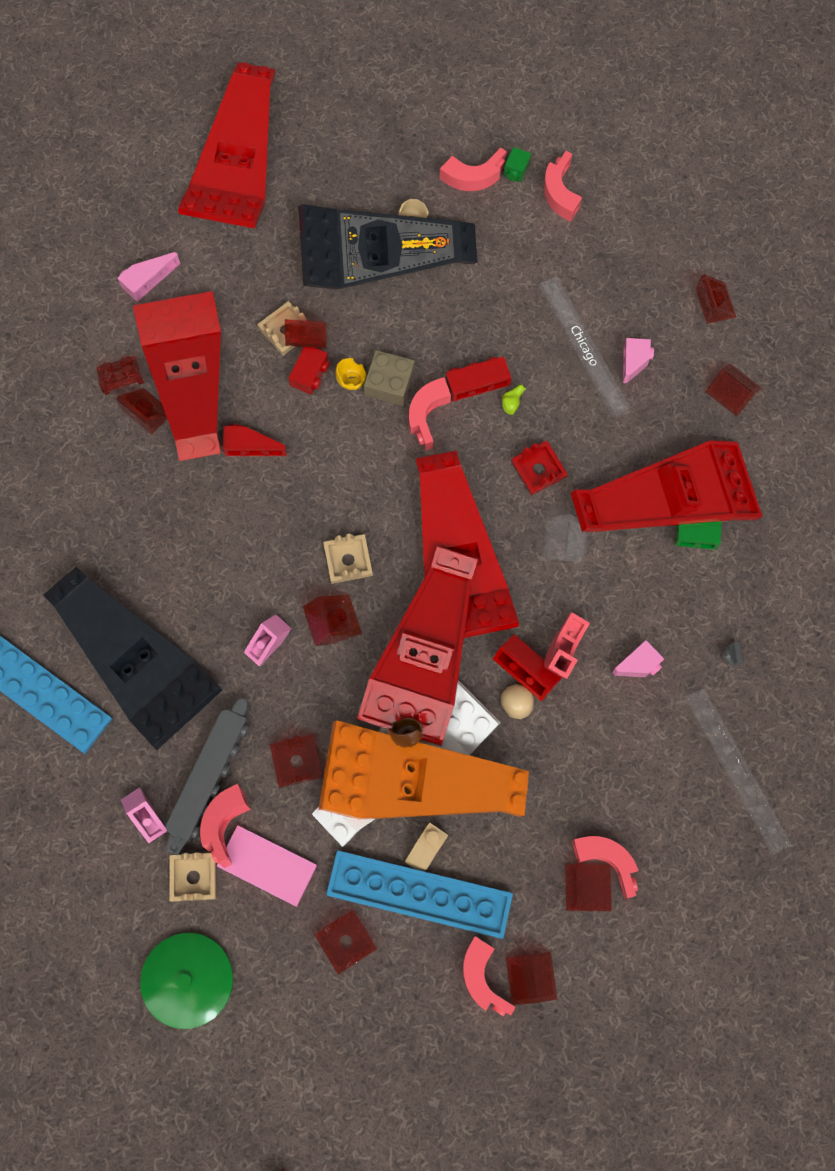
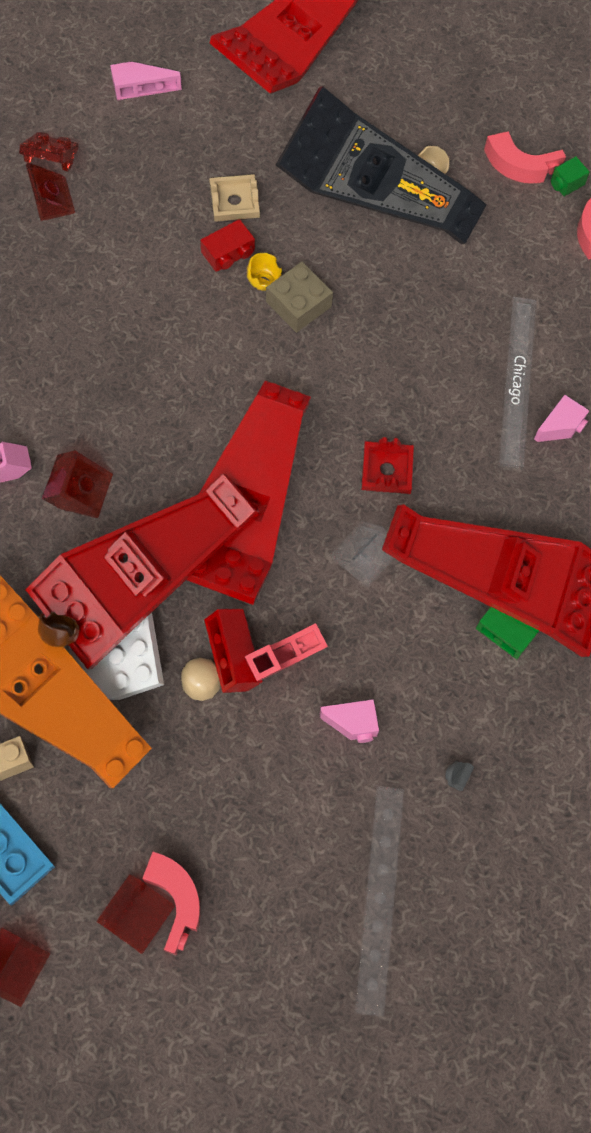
camera: 30 degrees right, 5 degrees down
(179, 334) = (128, 146): red wing -> none
(246, 442) = (117, 274): red slope -> none
(306, 333) = (246, 207): clear red slope -> none
(350, 545) = (131, 424): tan piece -> none
(426, 399) = (314, 339): coral arch -> none
(478, 378) = (386, 348): red brick -> none
(511, 401) = (406, 388): lime animal -> none

